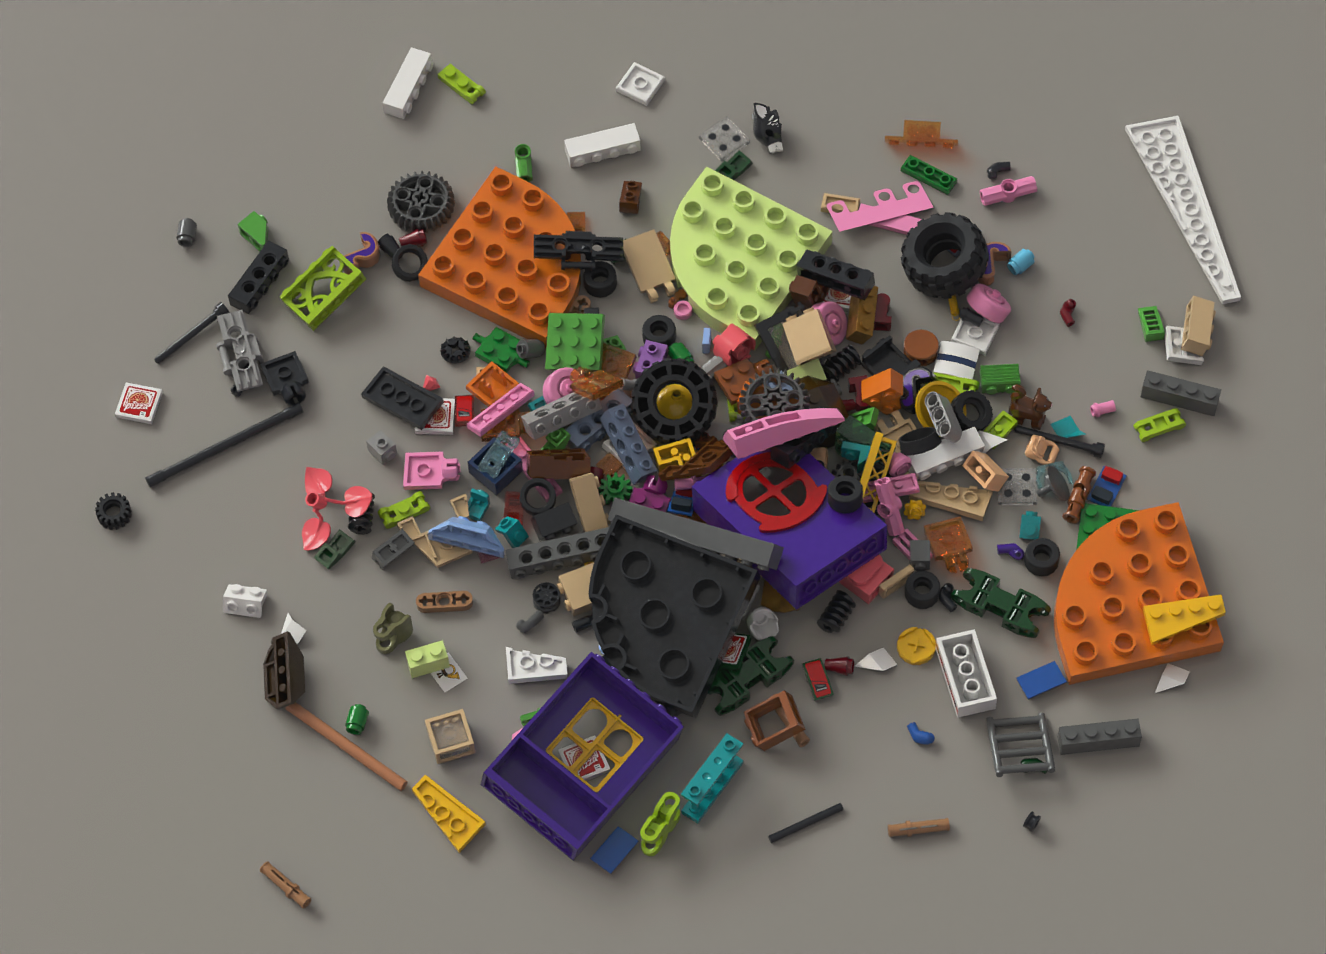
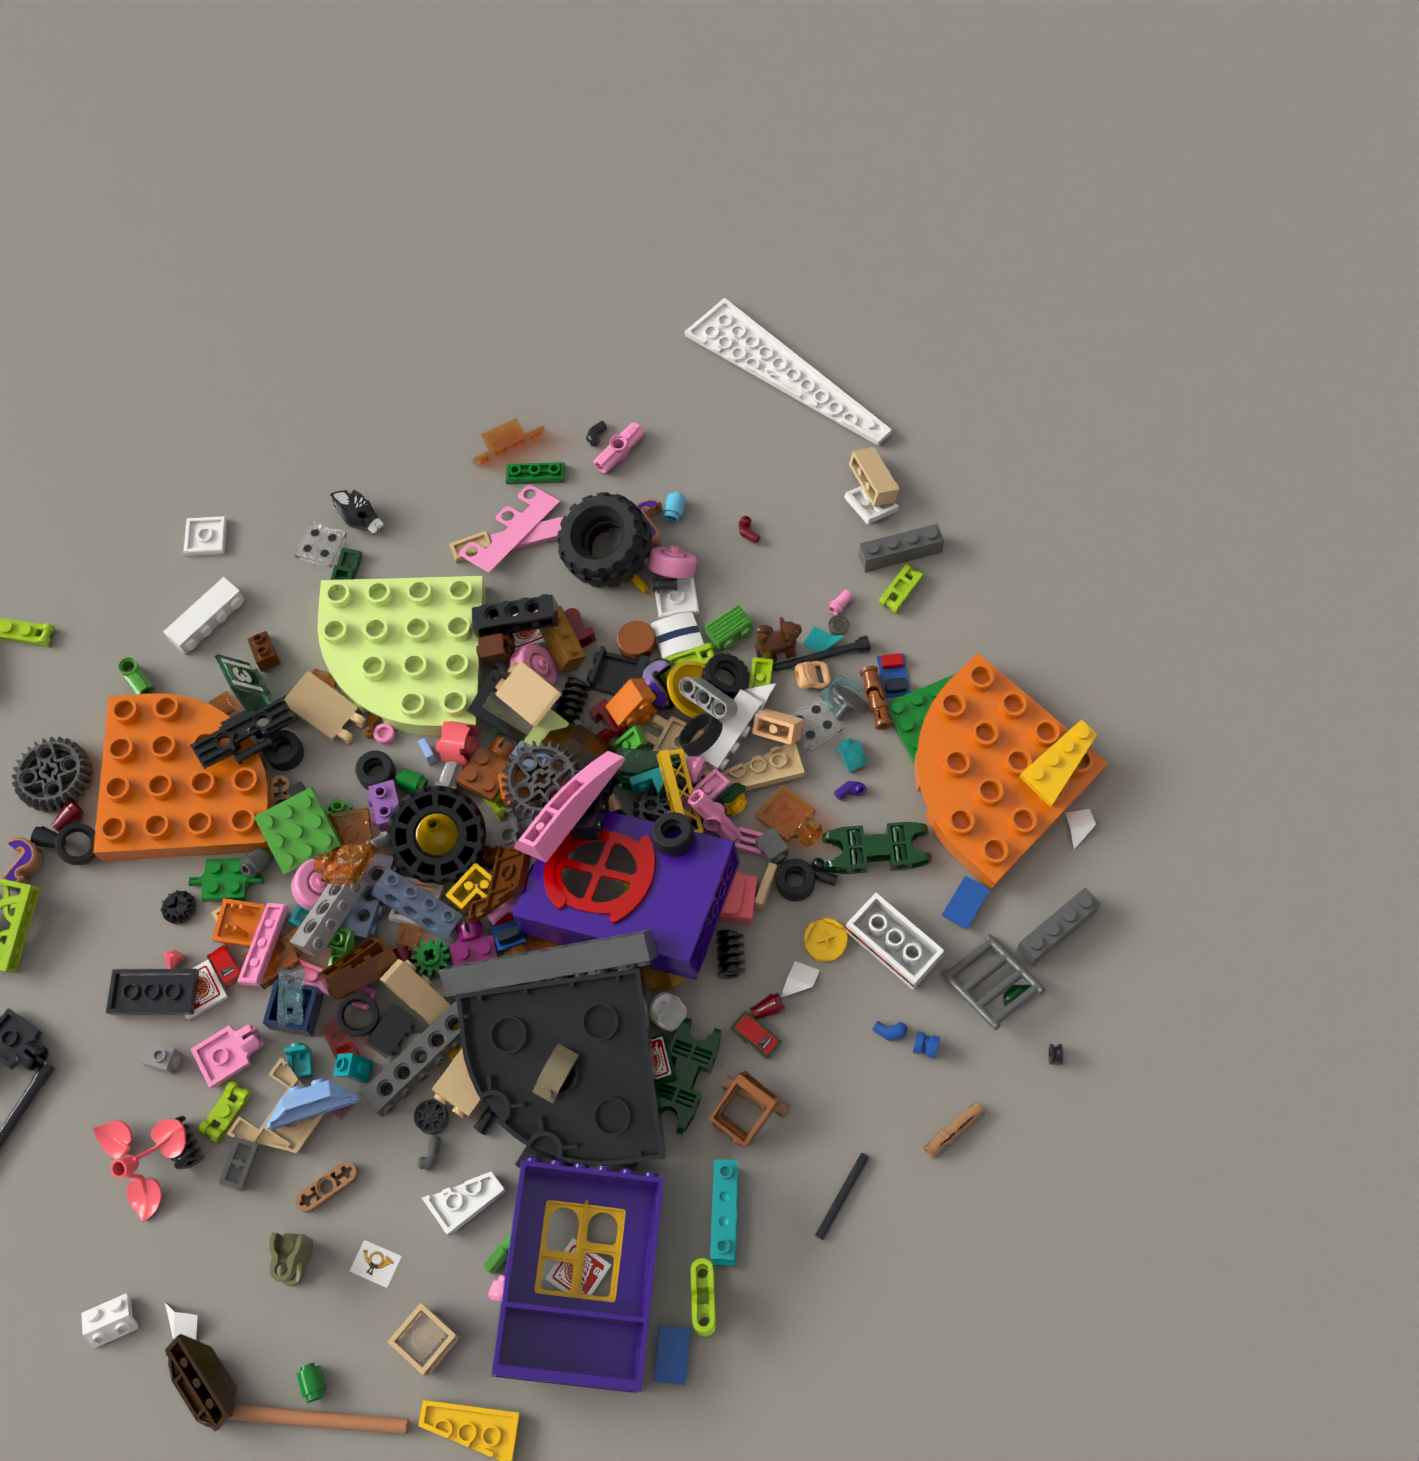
camera: 30 degrees left, 5 degrees up
(335, 549) = (176, 1201): dark green slope -> none
(427, 659) = (347, 1265): yellowish green brick -> none
(601, 211) = (244, 682): none -> clear green slope
(650, 606) = (555, 1073): none -> dark tan brick
(916, 498) = (730, 793): none -> dark green piece
(939, 758) = (926, 1044): none -> blue wheel
(1045, 546) = (884, 766): black tyre -> none
(1089, 425) = (838, 625): none -> clear smoke tile
(1152, 335) = (833, 510): bright green slope -> none

